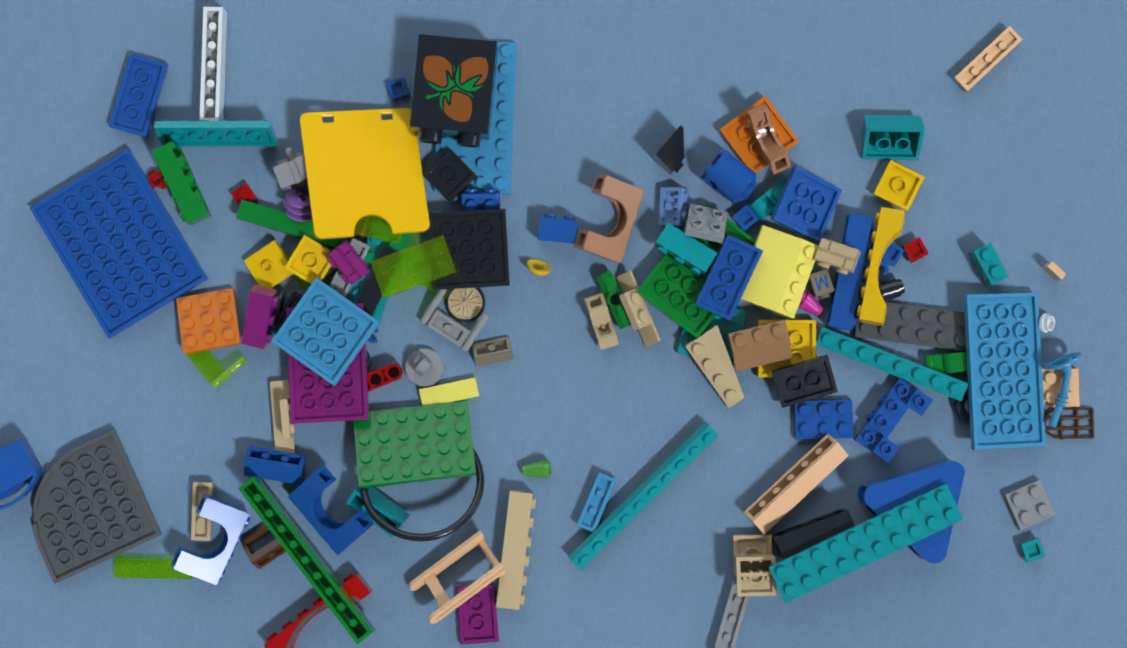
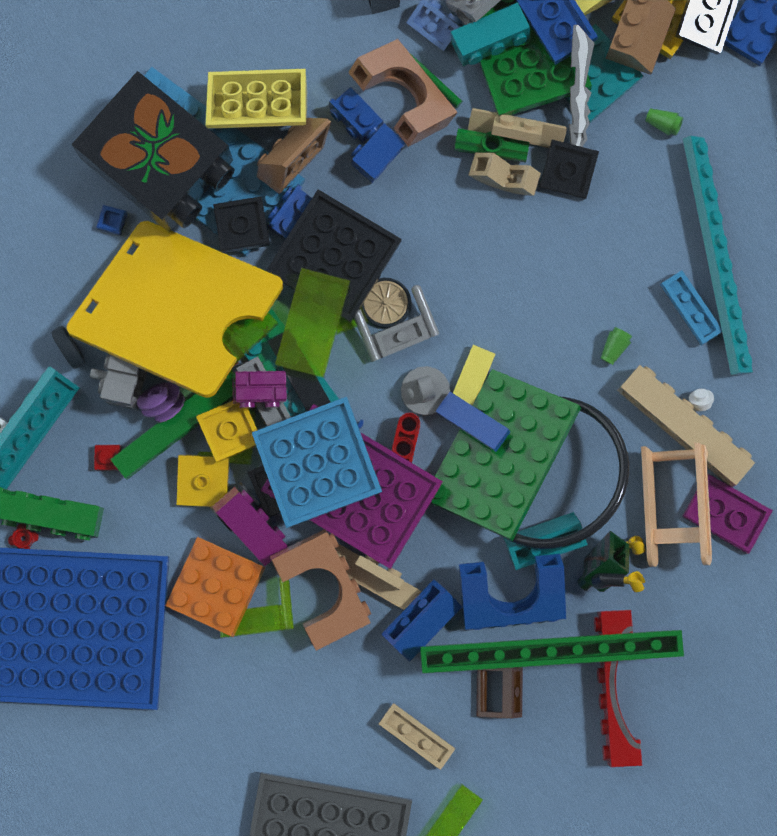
camera: 55 degrees left, 5 degrees down
(211, 565) = (483, 765): arch -> none
(271, 372) = (348, 611): none -> nougat arch
(292, 124) = (68, 347): none -> black bush
(389, 558) = (609, 564): none -> torso
(421, 411) = (473, 421): none -> blue tile
(492, 351) = (457, 308): dark tan slope -> none
(518, 175) = (293, 153): none -> medium nougat slope
(535, 128) = (256, 98): none -> light yellow slope
(538, 264) = (402, 200): yellow piece -> none
(539, 548) = (701, 399): none -> white plate
(576, 196) = (354, 114): none -> blue bracket
(634, 234) = (450, 96): none -> green bar
(634, 360) = (569, 169): none -> black tile
(685, 335) = (579, 95): none -> light grey sword
(711, 403) = (665, 121): none -> bright green cone
(713, 359) = (631, 88): tan wing -> none

